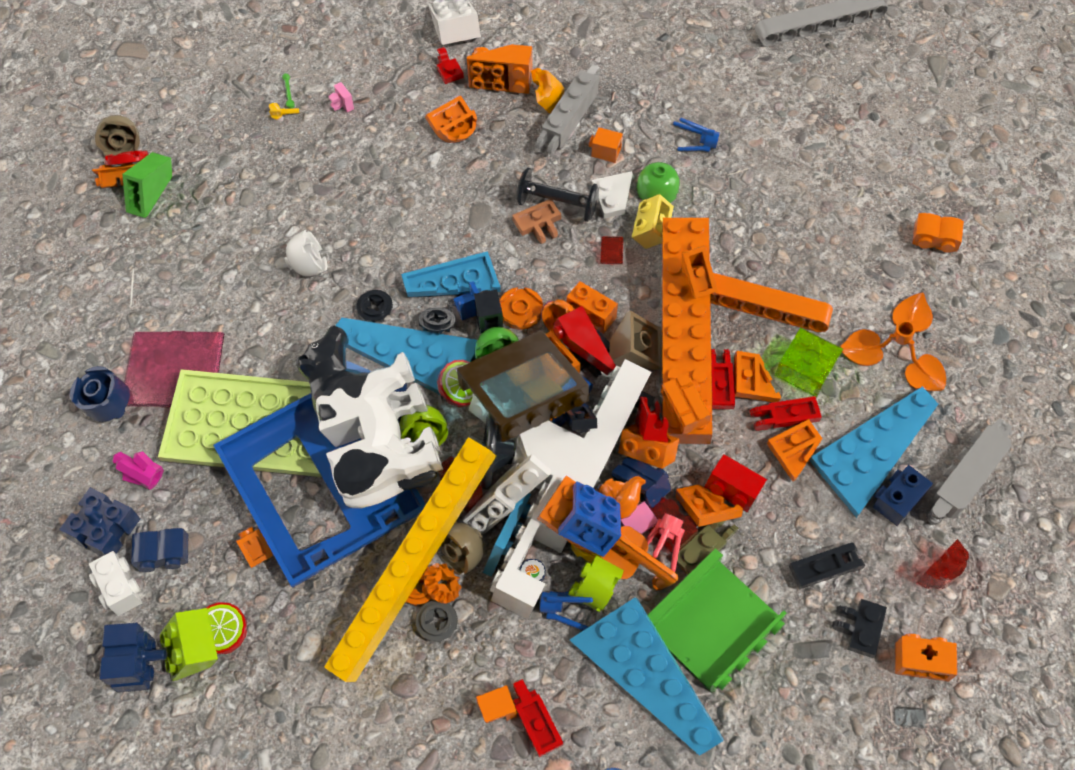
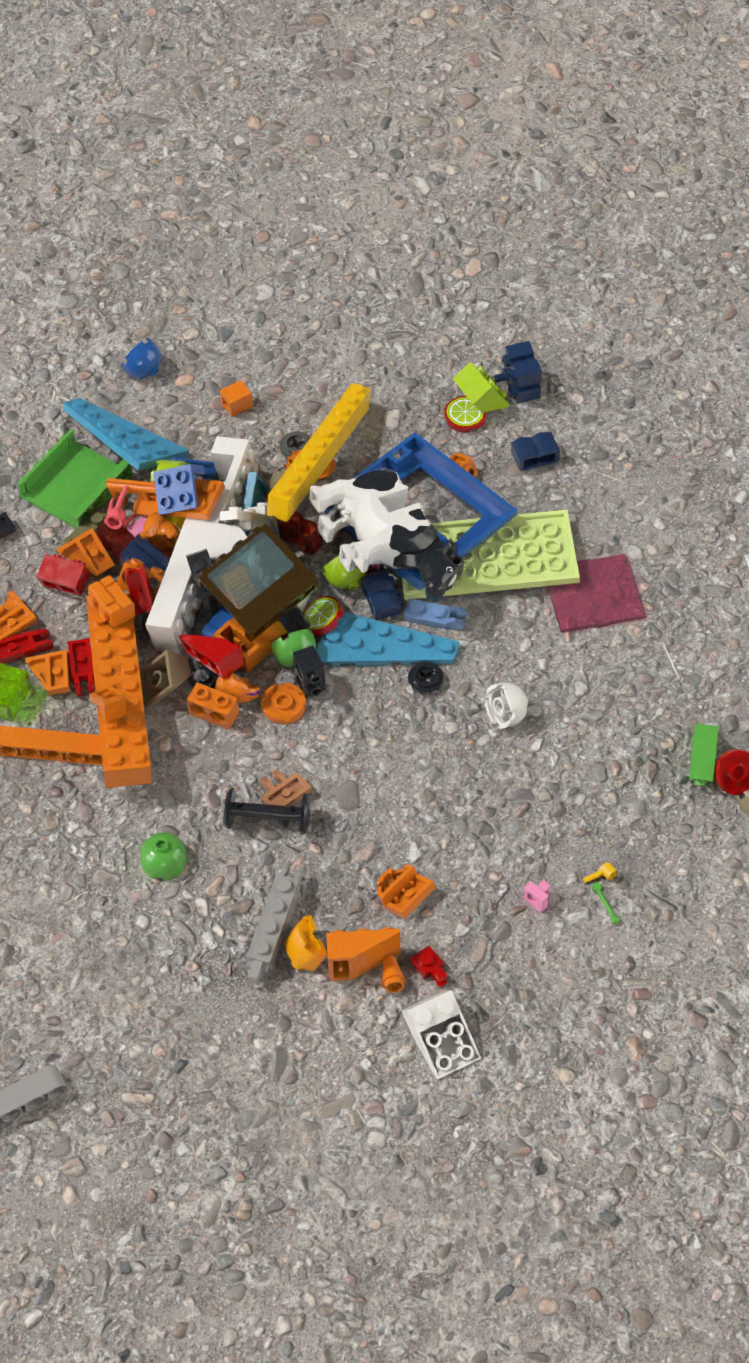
camera: 170 degrees right, 5 degrees down
(100, 394) = (640, 544): dark blue brick -> none
(100, 523) = (591, 457): dark blue brick -> none
(116, 586) = (558, 420): white brick -> none
(139, 469) = (577, 500): dark pink rock -> none
(443, 316) = (364, 660): black gear -> none
(452, 277) = (347, 720): dark azure wing -> none
(466, 303) = (333, 691): blue panel -> none
(536, 720) = (205, 398): red hinge -> none
(606, 144) = (226, 889): orange brick -> none
(611, 250) = (202, 775): clear red slope -> none
(613, 194) = (210, 840): white wing -> none
(649, 220) = (163, 801): light yellow brick -> none
(708, 136) = (114, 919): blue plant -> none

